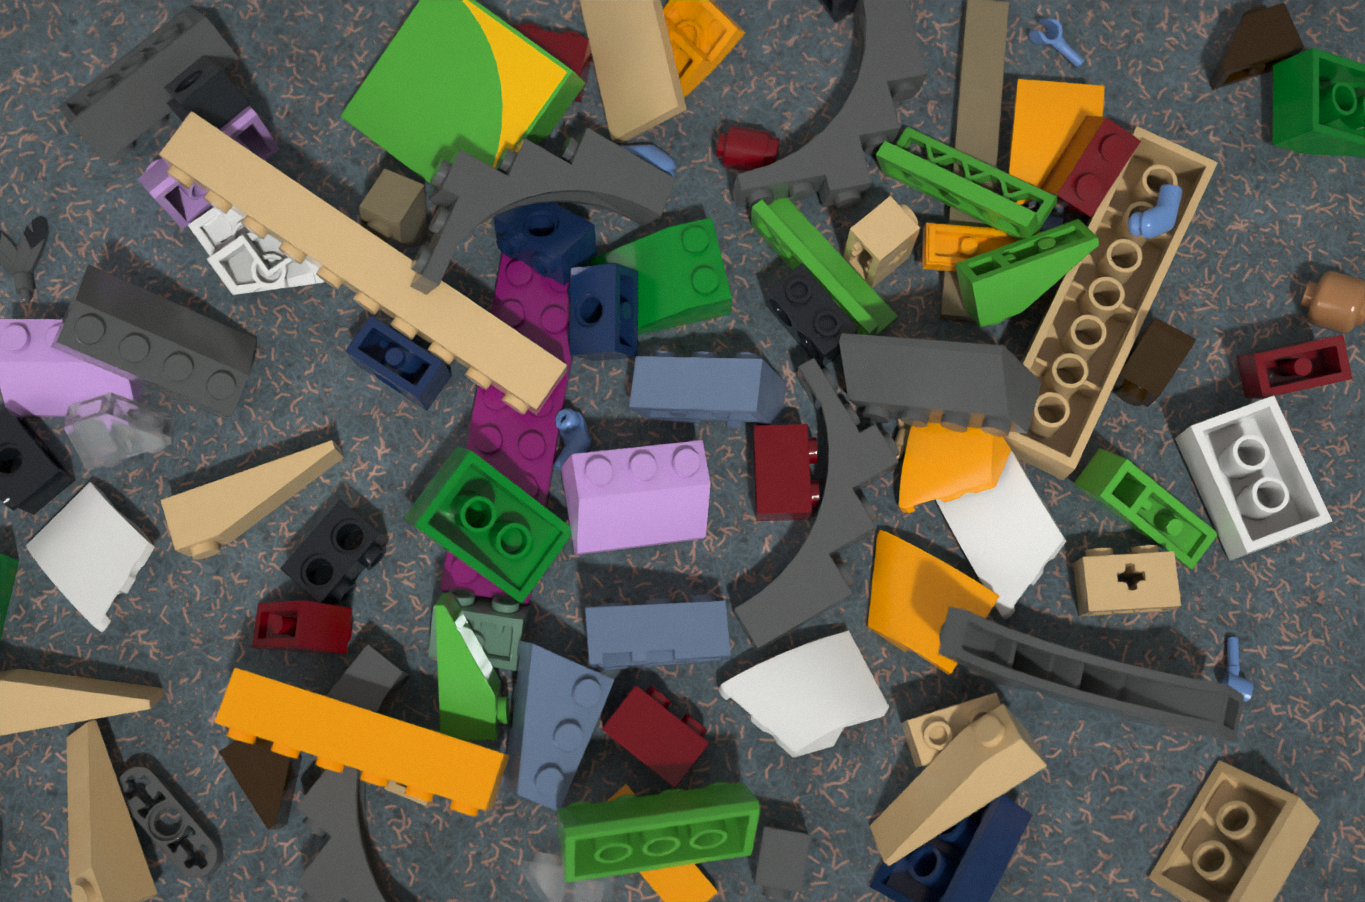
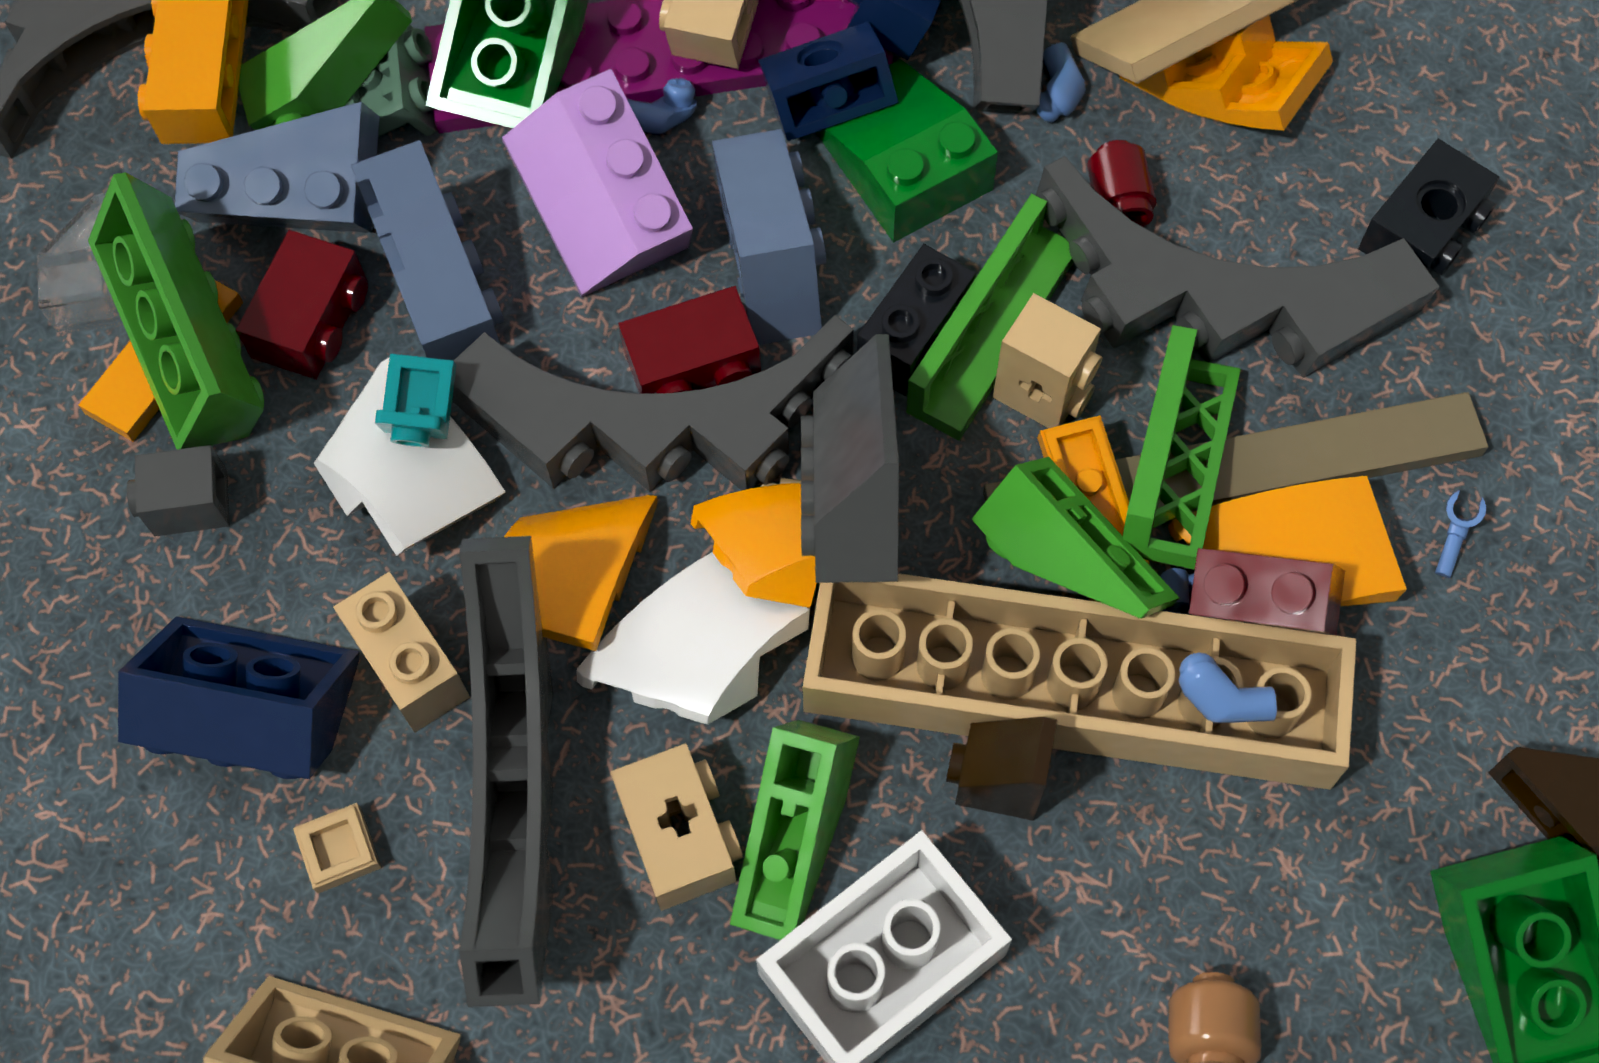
camera: 70 degrees right, 10 degrees down
(783, 668) = (417, 399): none -> teal bracket
(964, 777) = (339, 665): tan slope -> none
(1073, 811) = (337, 848): none -> tan tile
(1232, 670) = (572, 1023): medium blue hand -> none
(1294, 367) = (1078, 976): dark red brick -> none

